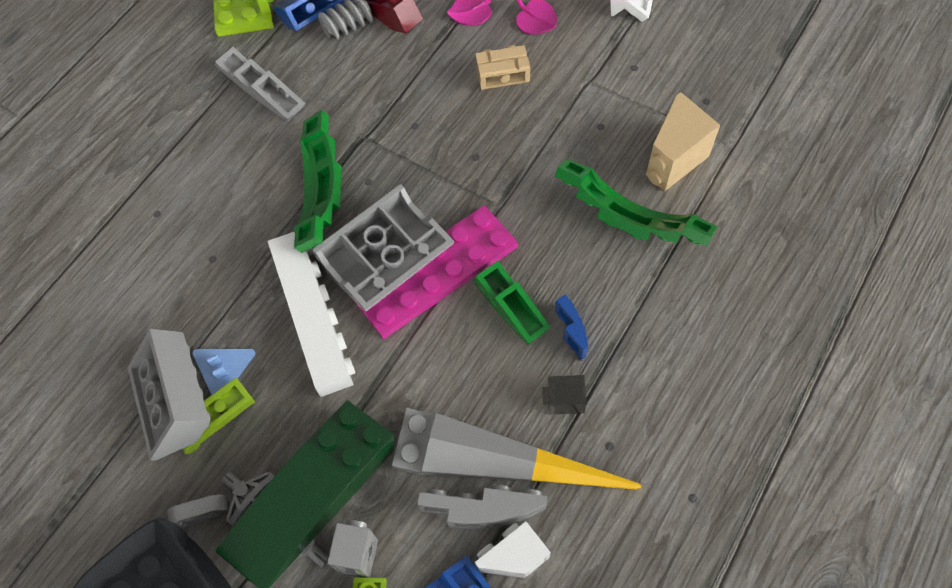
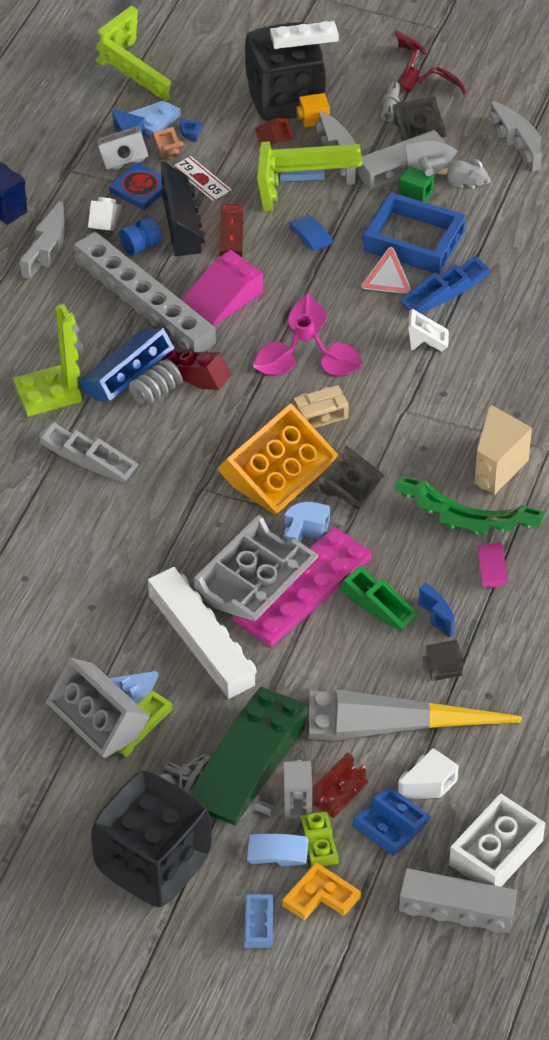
camera: 15 degrees left, 15 degrees down
(321, 182) = (175, 524): green piece -> none
(409, 546) = (339, 786): none -> clear red hinge
(445, 120) = (278, 461): none -> light orange slope
(454, 193) = (306, 520): none -> light blue brick
(495, 510) = (395, 754): light grey slope -> none
(513, 151) = (350, 478): none -> clear smoke slope
(645, 279) = (492, 564): none -> dark pink slope

